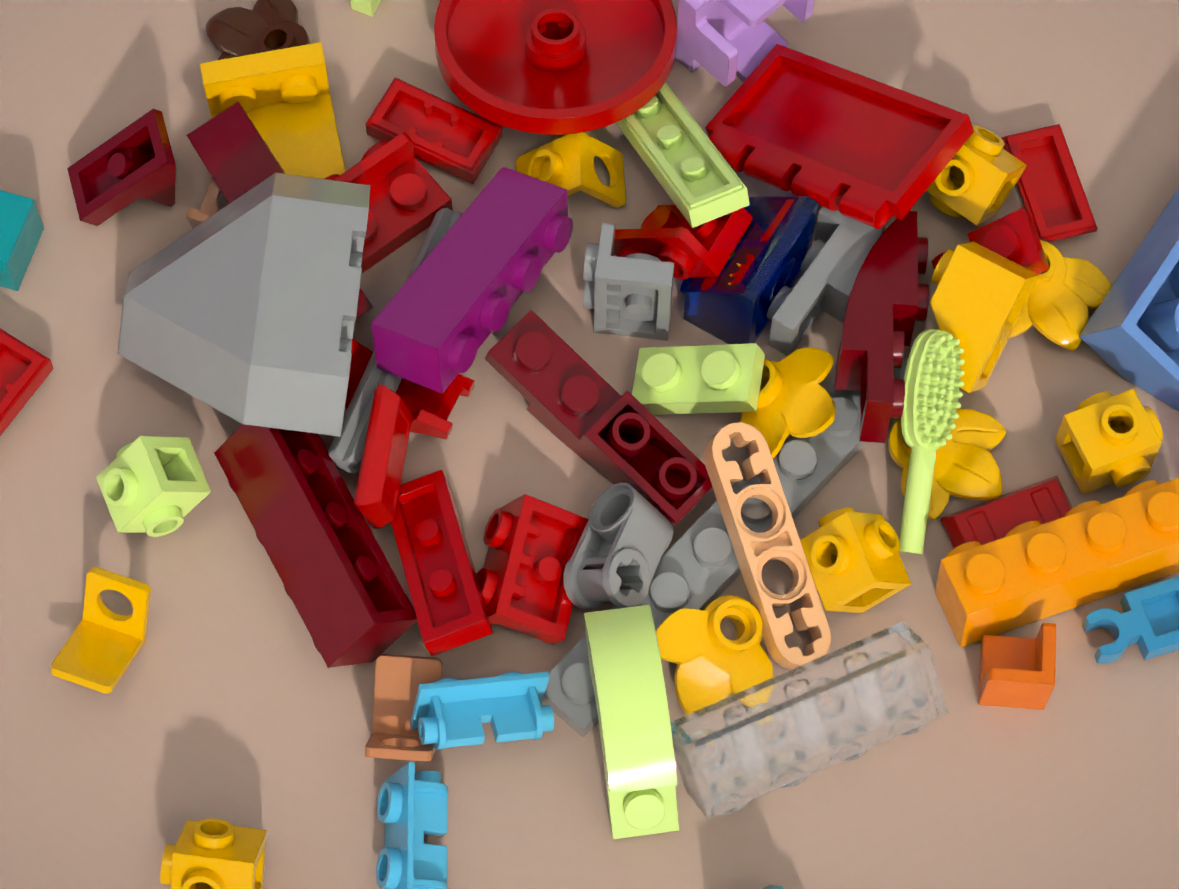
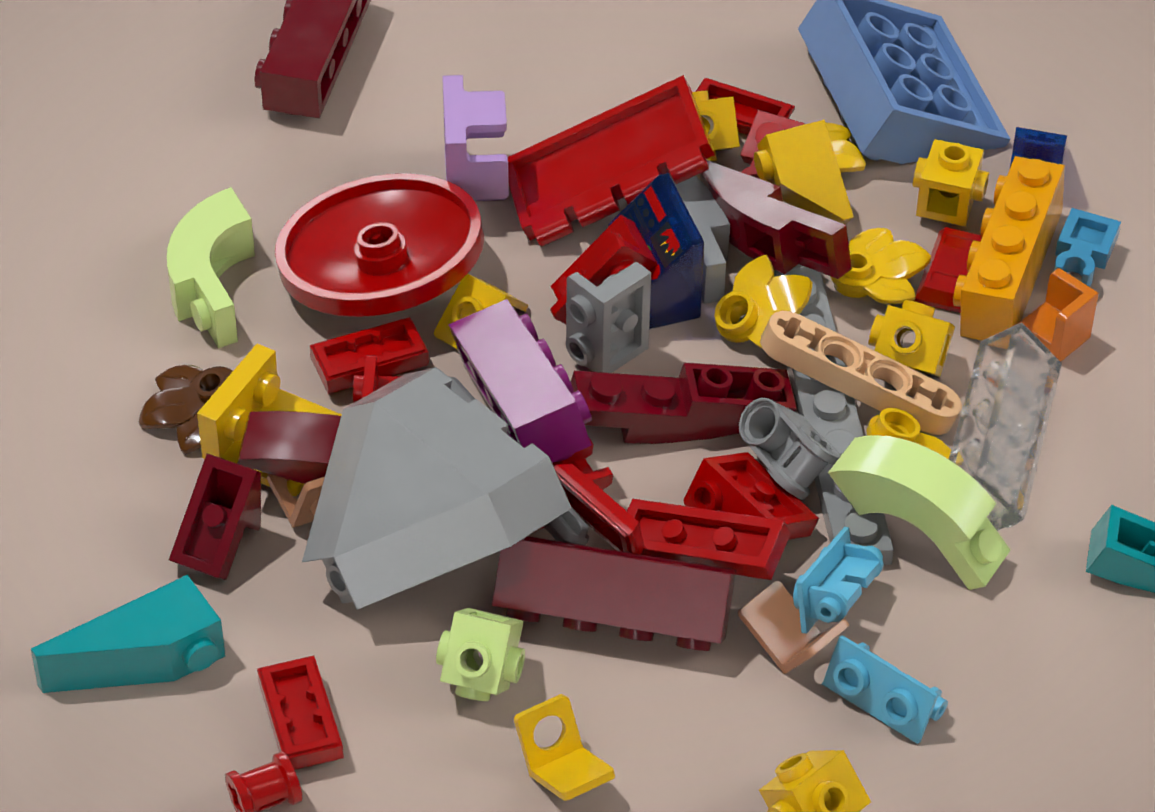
camera: 50 degrees left, 20 degrees down
(684, 159) = (553, 230): yellowish green tile -> none
(699, 378) = (705, 332): yellowish green plate -> none
(926, 423) = (861, 244): yellowish green piece -> none

